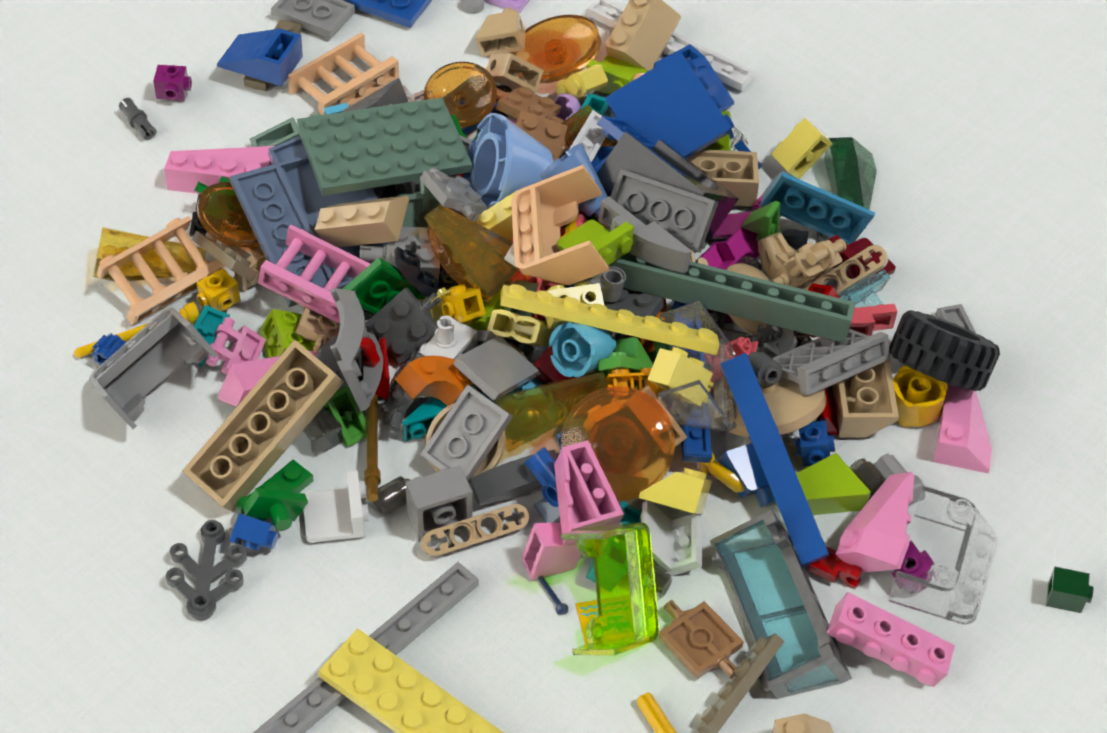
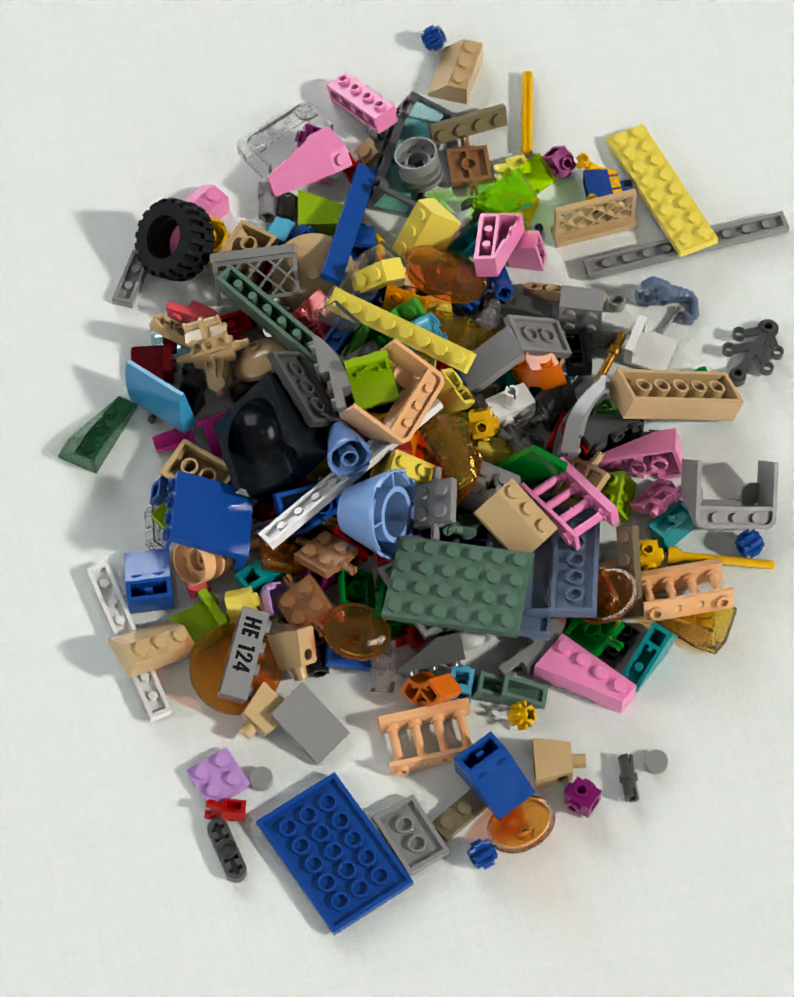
camera: 145 degrees left, 10 degrees up
(117, 143) = (656, 761): none -> light grey tile
(168, 207) = (649, 654): none -> teal slope
(209, 34) = (522, 827): none -> clear orange dish
(215, 101) = (554, 762): none -> tan torso
(240, 16) = (482, 853): none -> blue gear
(253, 533) = (712, 354): blue brick -> none
(265, 118) = (521, 715): none -> yellow gear
(277, 505) = (690, 358): green tile -> none
(335, 546) = (680, 309): none -> light grey hinge
(352, 84) = (430, 690): none -> orange brick
(352, 579) = (665, 293): none -> sand blue animal
(402, 544) = (617, 302): none -> light grey hinge
(408, 463) = (580, 360): none -> black hinge
(409, 266) = (503, 456): black slope -> none
(457, 38) = (309, 723): none -> light grey tile
(494, 628) = (601, 224): none -> tan fence
(511, 684) = (600, 180): none -> torso
(533, 424) = (490, 317): none -> clear hinge
(549, 43) = (243, 655): none -> light grey brick
(589, 688) = (560, 161): none -> magenta brick
(615, 128) = (261, 503): blue plate -> none
(644, 665) = (509, 165): none -> light yellow plate
(754, 582) = (418, 164): none -> light grey wheel
(764, 221) = (208, 403): bright green slope -> none
(766, 368) = (310, 277): dark grey brick -> none
(801, 148) = (119, 464): light yellow brick -> none
(832, 592) = (368, 152): none -> tan plate
(851, 443) = (282, 229): none -> medium azure brick
(1069, 590) = (226, 91): dark green brick -> none

